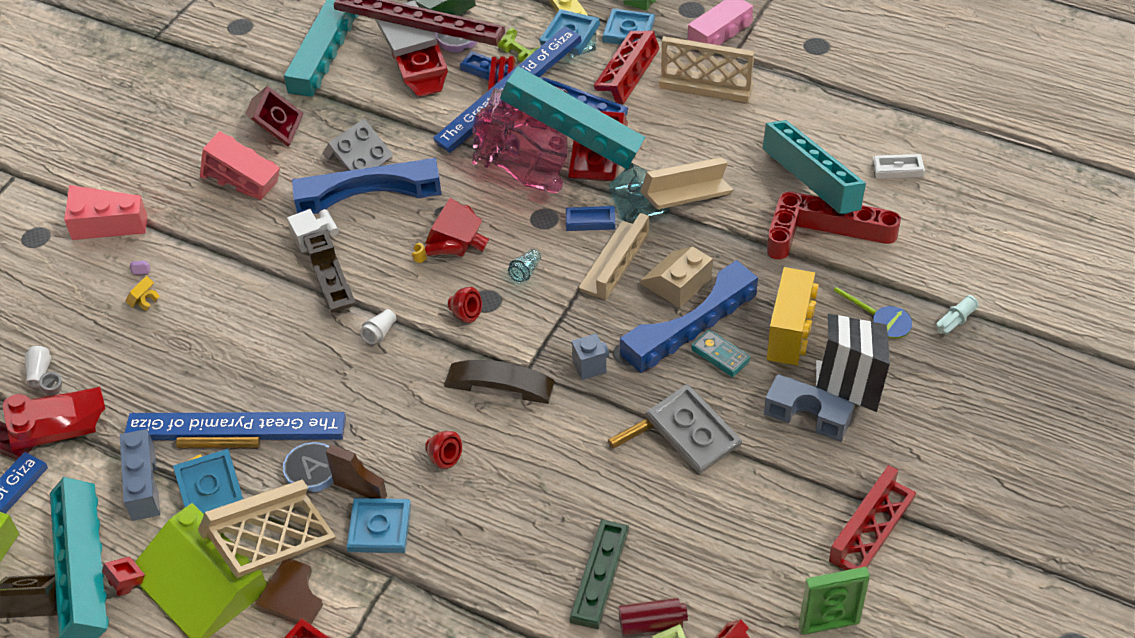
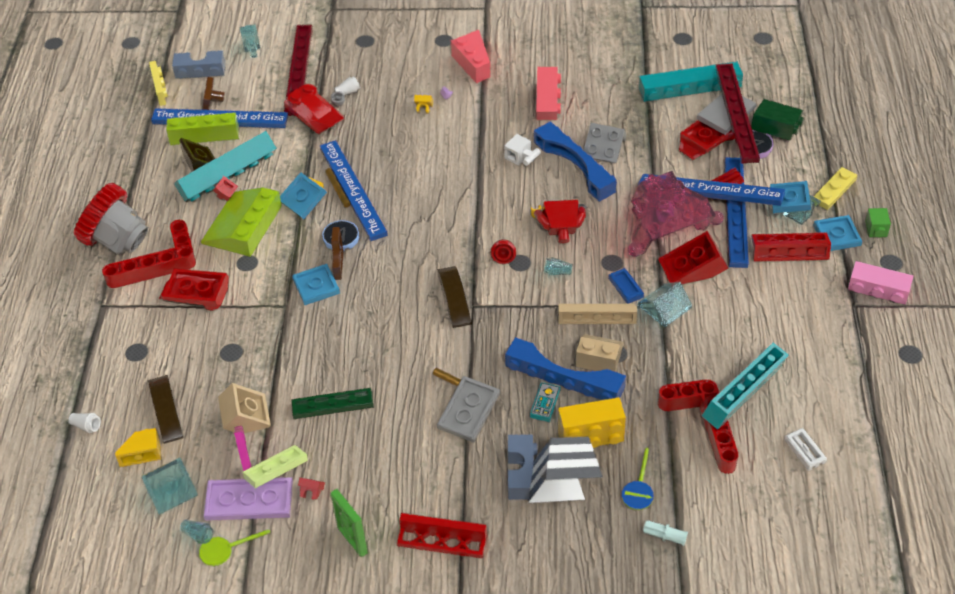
camera: 65 degrees right, 0 degrees up
(138, 464) = (282, 167): sand blue arch -> none
(252, 511) = (284, 218): tan fence -> none
(275, 115) = (604, 90): dark red slope -> none
(289, 593) = (249, 265): reddish brown tile -> none
(328, 271) = (492, 177): dark brown slope -> none
(376, 328) = (461, 217): white cone -> none
(444, 449) = (381, 289): red brick -> none
(508, 43) = (768, 173): lime piece -> none
(572, 117) = (678, 225): teal brick -> none
(589, 356) = (495, 329): sand blue brick -> none
(651, 616) = (308, 438): dark red brick -> none
(686, 183) = (683, 321): tan panel -> none
(705, 82) = (810, 292): tan fence -> none

